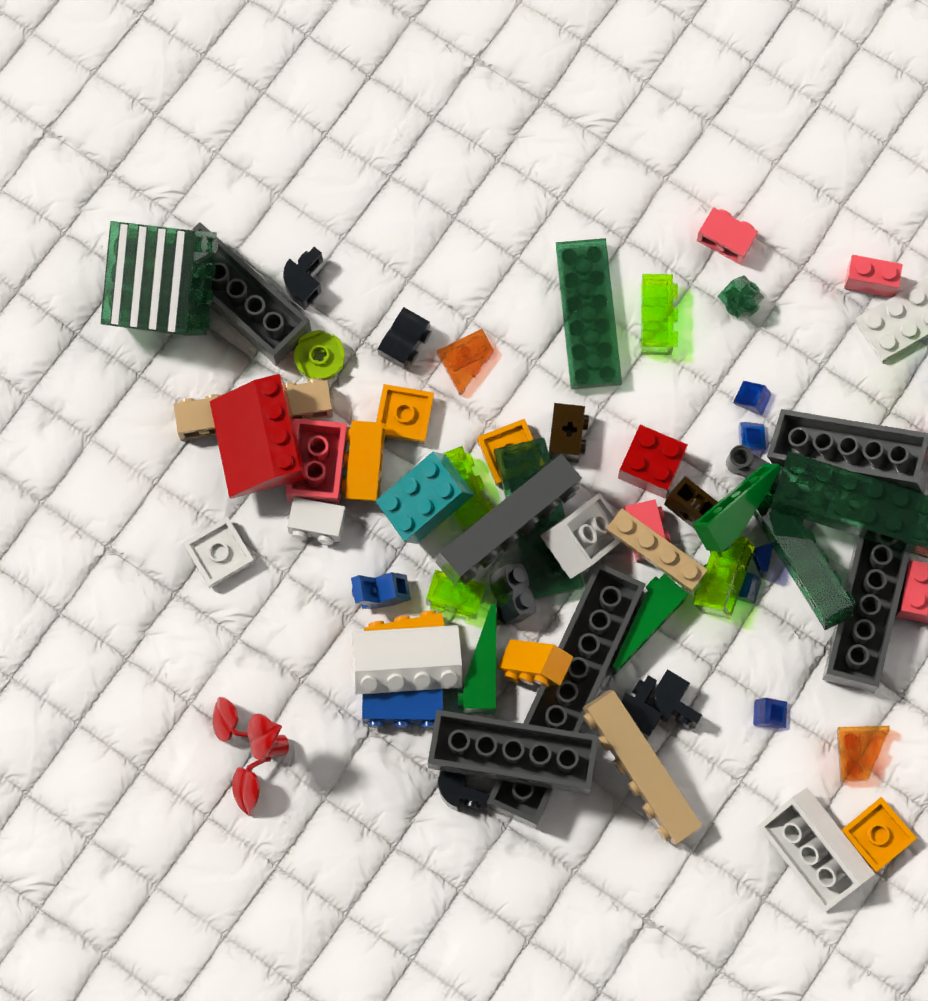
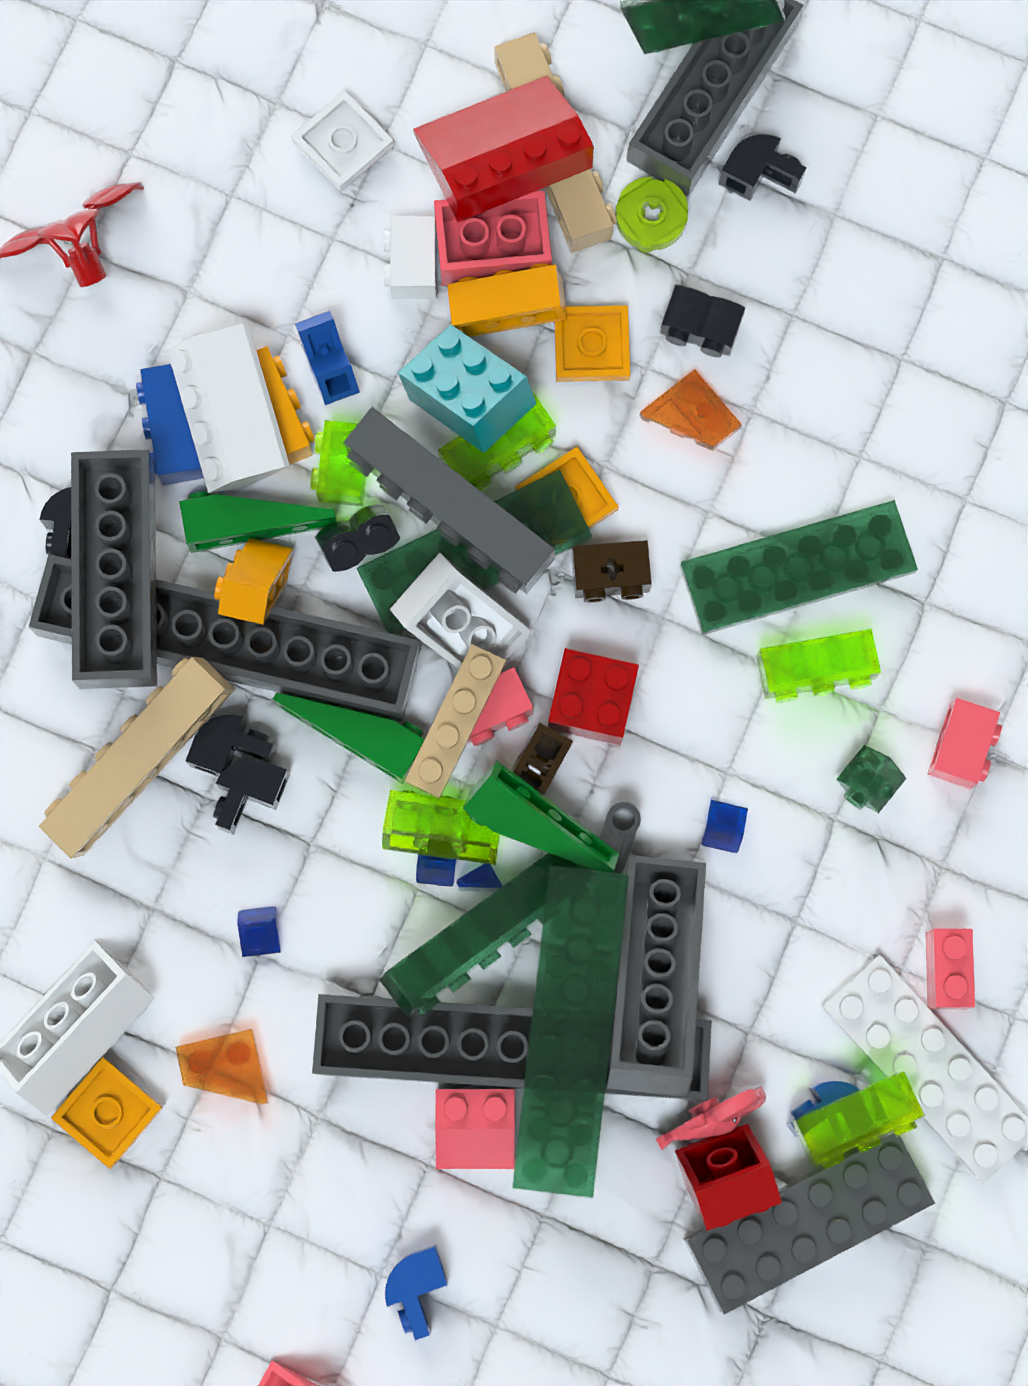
camera: 75 degrees right, 5 degrees up
(752, 435) = (664, 834): clear blue slope -> none

